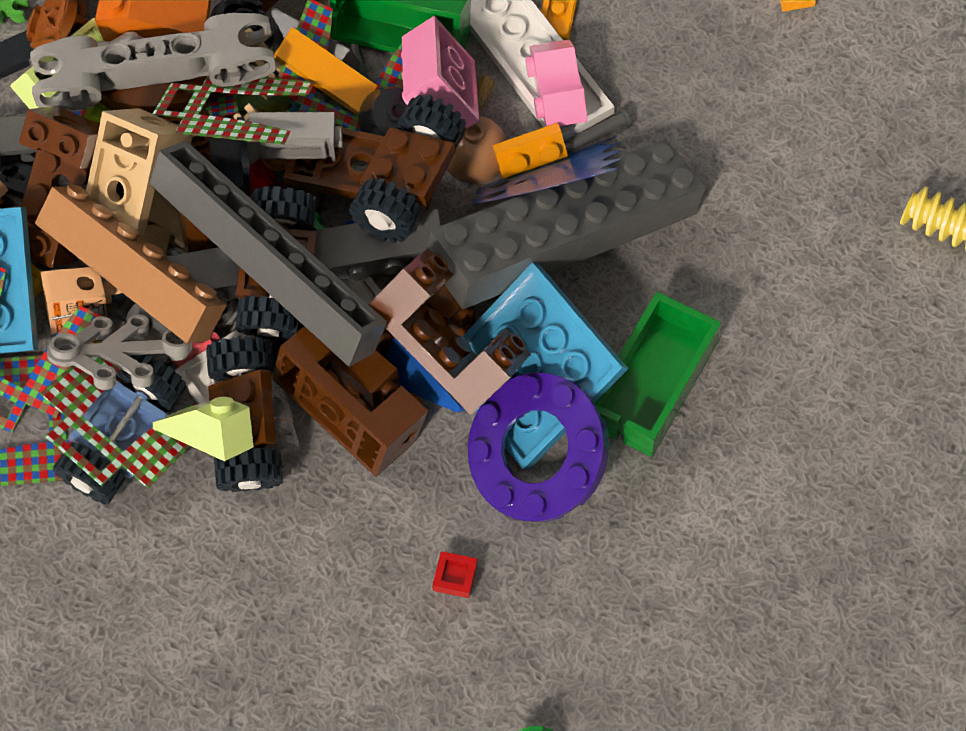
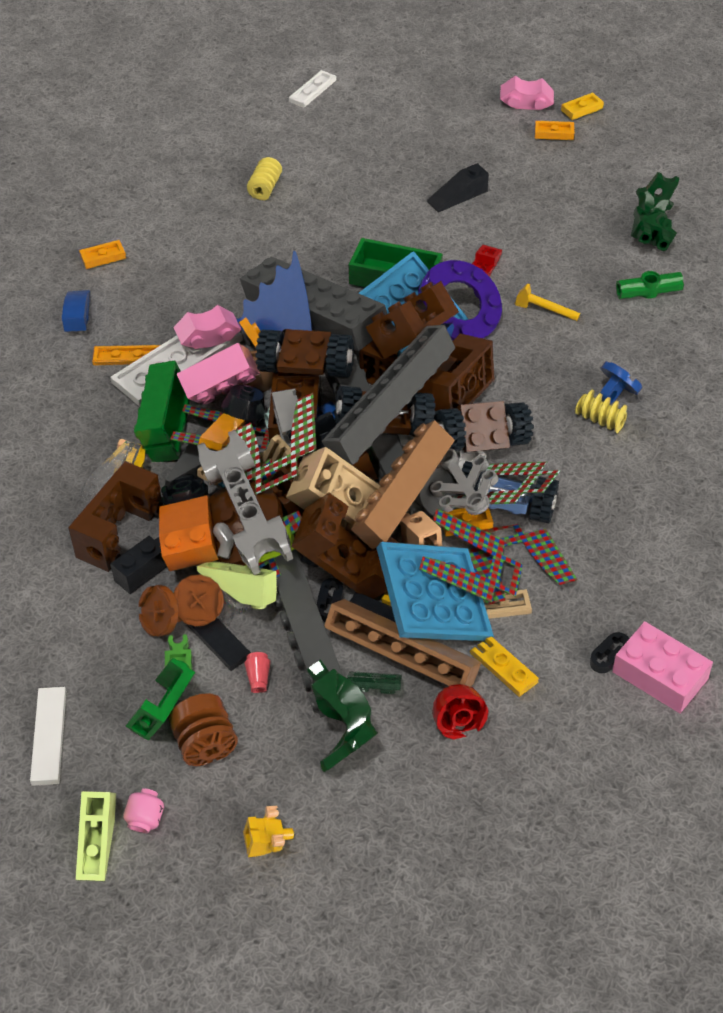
camera: 105 degrees left, 15 degrees down
(214, 427) = (501, 429): yellowish green slope -> none
(252, 615) = (602, 411): none -> light yellow piece
(302, 655) = (618, 381): none -> blue tile
(455, 574) = (542, 335): red plate -> none
(548, 570) = (525, 296): none -> yellow piece
(665, 532) = (487, 258): none -> red slope
(868, 531) = (460, 188): none -> black slope

